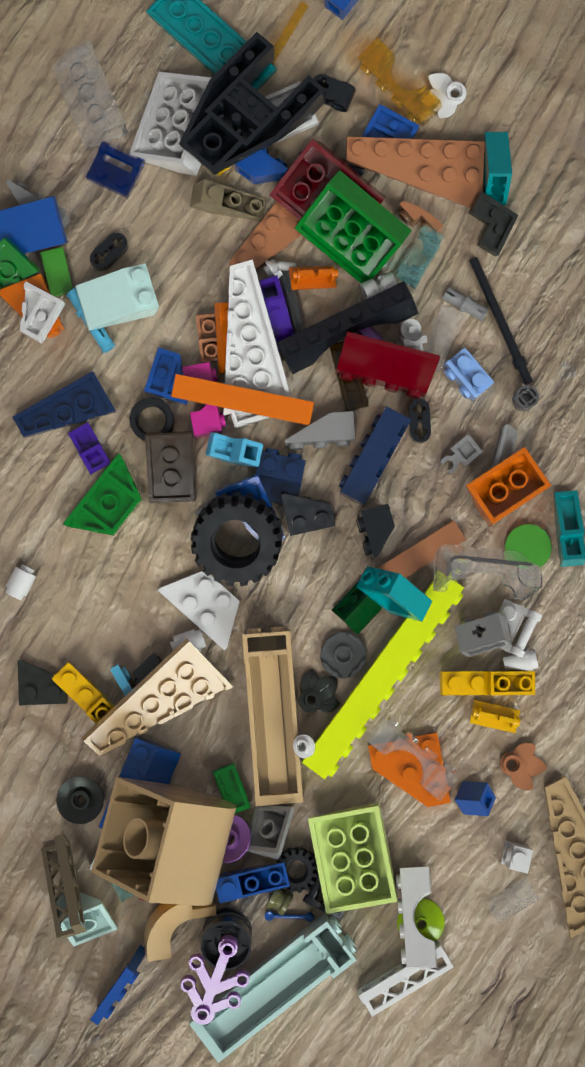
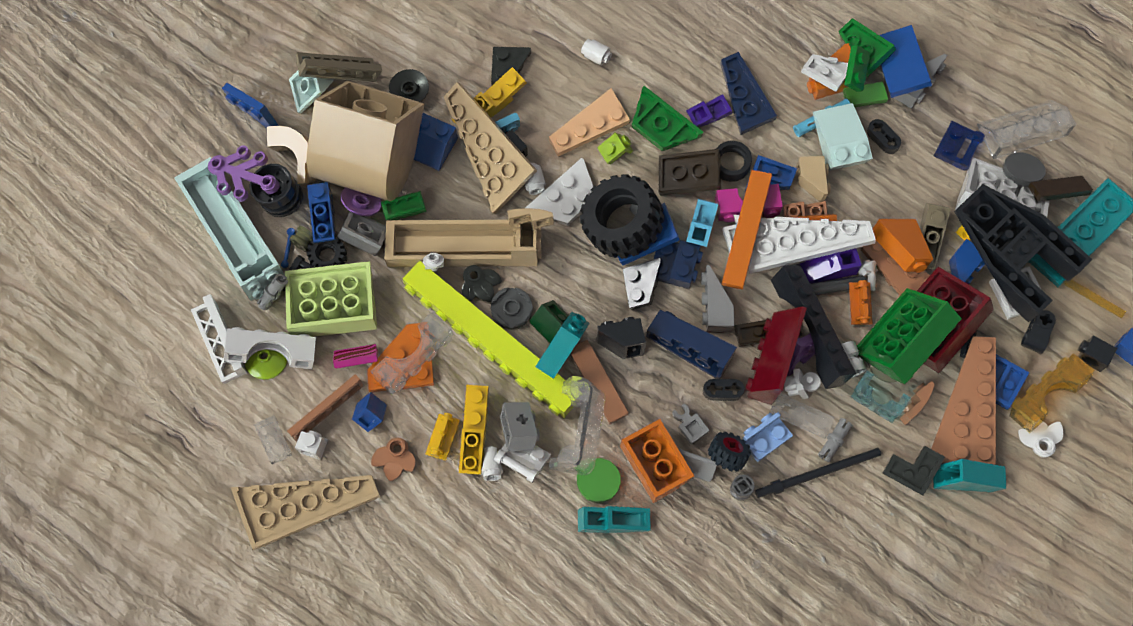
camera: 95 degrees right, 15 degrees down
(35, 279) = (857, 68): none -> green plate
(109, 579) = (591, 123): none -> light nougat wing
(142, 552) = (615, 147): none -> lime bracket
(143, 99) = (1023, 168): none -> dark grey tile
(165, 62) = (1060, 188): none -> dark brown tile
(165, 330) = (812, 176): none -> tan slope
(245, 229) = (904, 243): none -> orange slope
(255, 632) = (537, 217): none -> tan slope
(350, 925) = (272, 292): none -> light grey pin
(352, 34) = (1096, 353): none -> black brick
(413, 821) = (355, 356): none -> dark pink tile
(475, 846) = (326, 407): none -> nougat tile
(491, 412) = (729, 451): none -> black wheel

